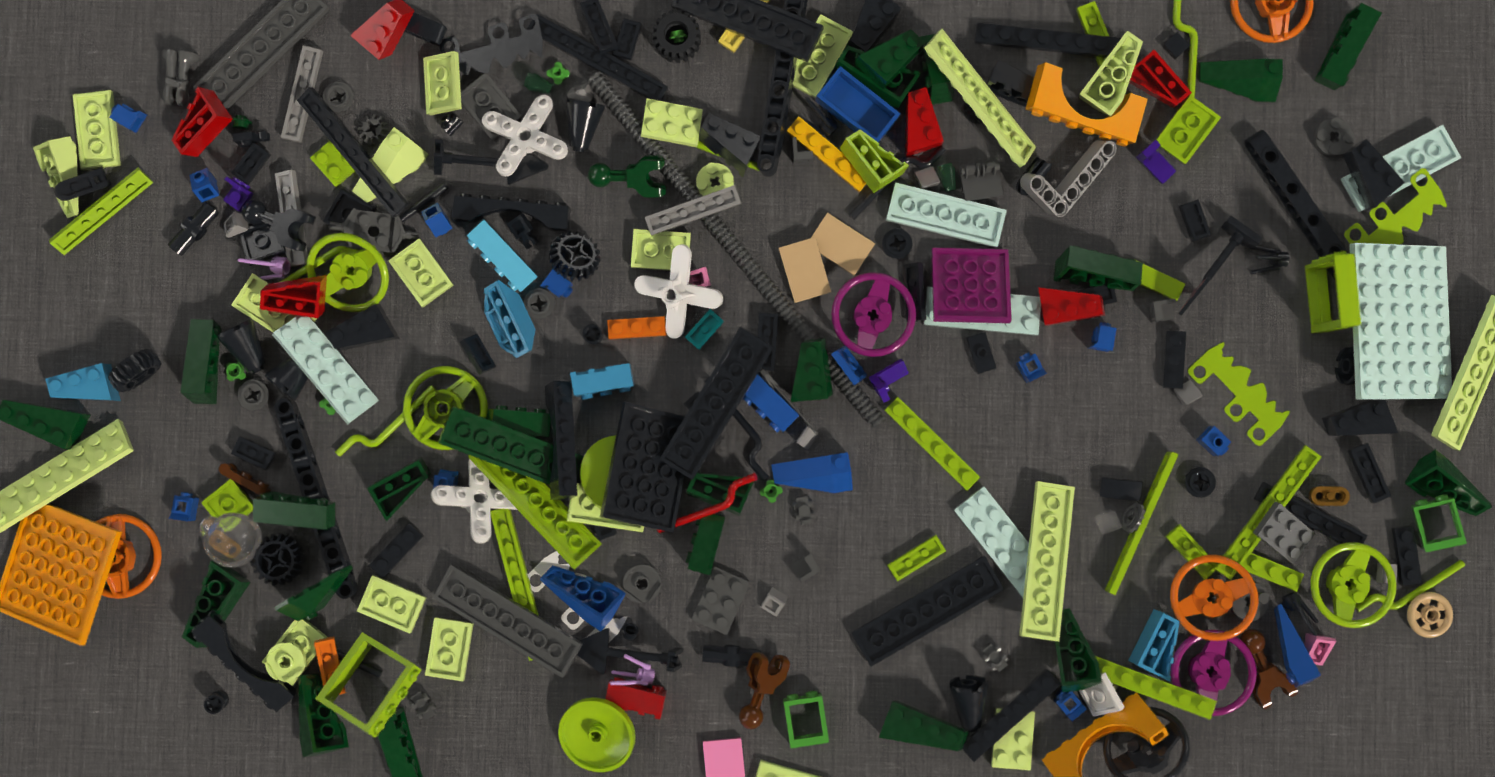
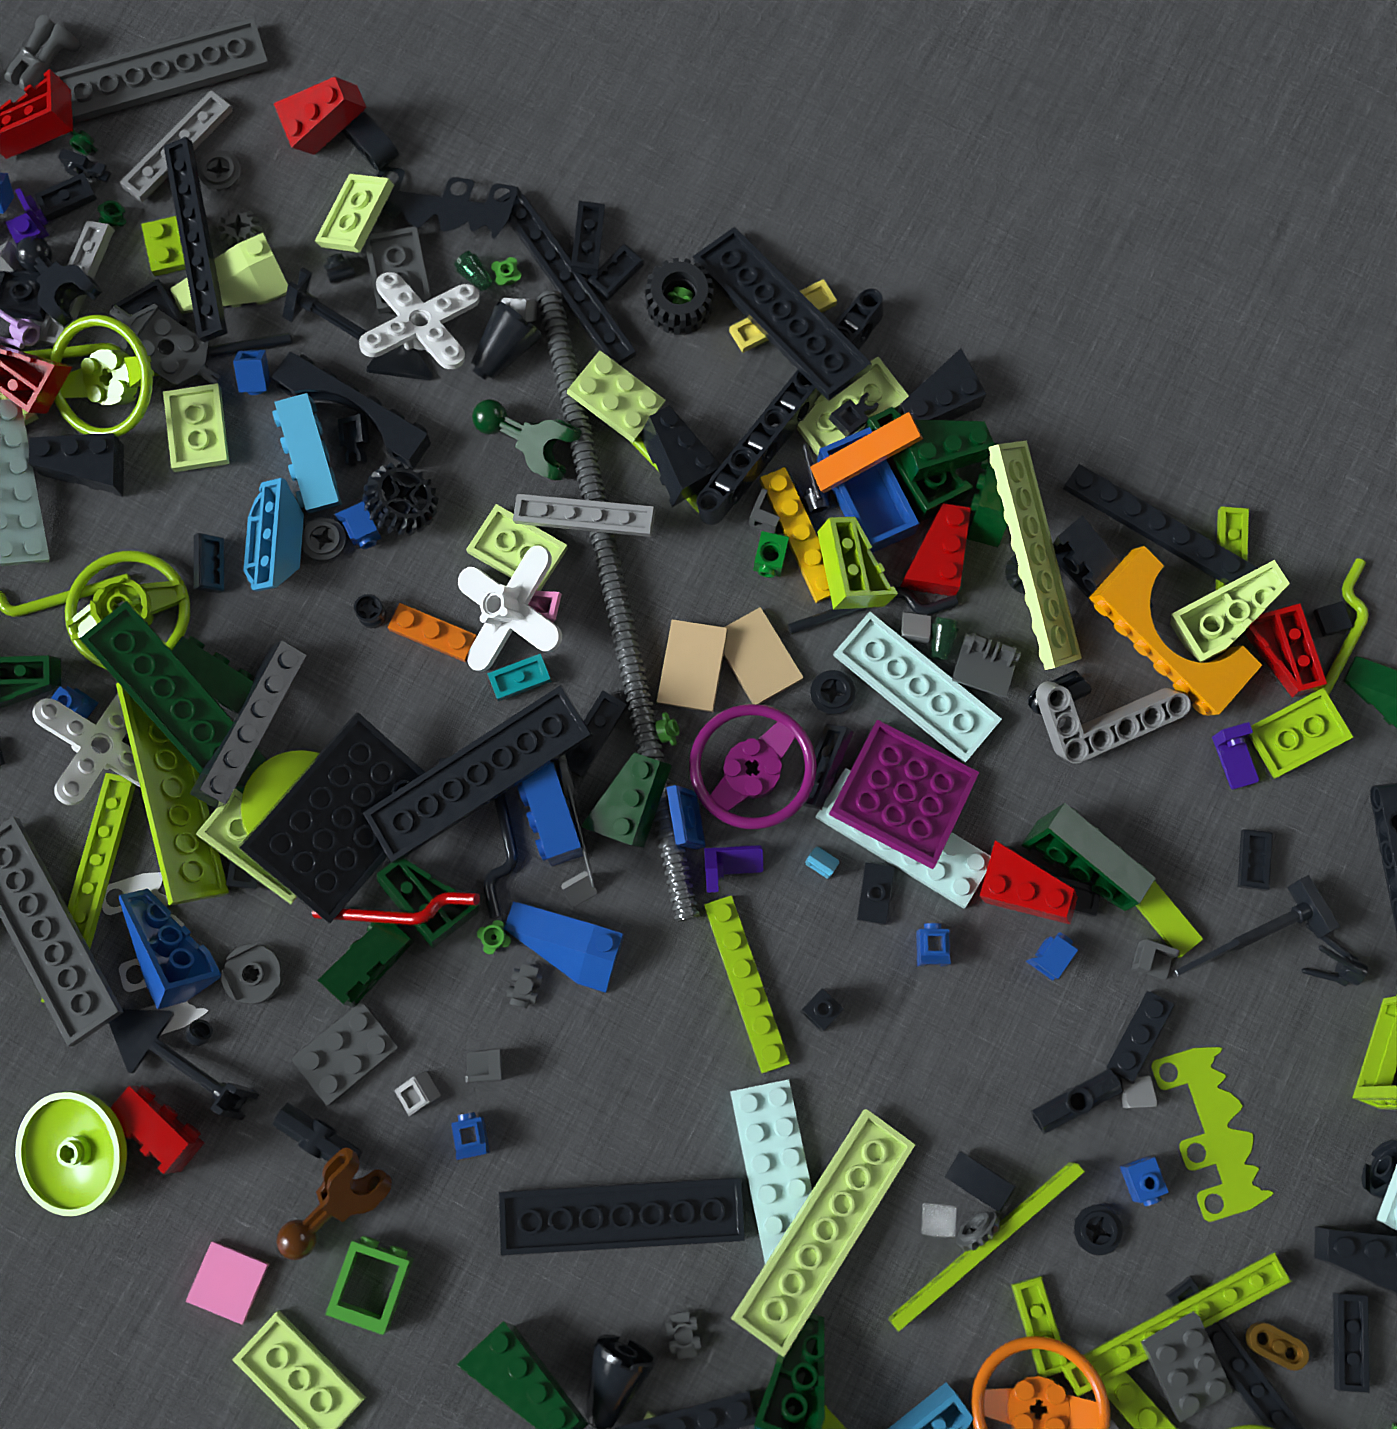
camera: 25 degrees right, 10 degrees down
(287, 156) = (112, 213): none -> dark green plate
(602, 381) = (347, 675): dark azure wedge -> none
(643, 676) = (182, 1104): lavender plant -> none
(713, 171) = (637, 483): yellowish green plate -> none
(810, 316) = (667, 729): none -> bright green plate
(817, 168) = (770, 543): none -> green brick
(818, 610) = (470, 1136): none -> blue window
(824, 63) = (852, 416): none -> black plate
(848, 86) = (866, 452): none -> orange tile
(916, 557) = (644, 1132): lime tile -> none
(941, 350) = (822, 862): none -> medium azure slope
(984, 437) = (821, 1010): none -> black brick
(1162, 406) = (1093, 1092): none -> black piece

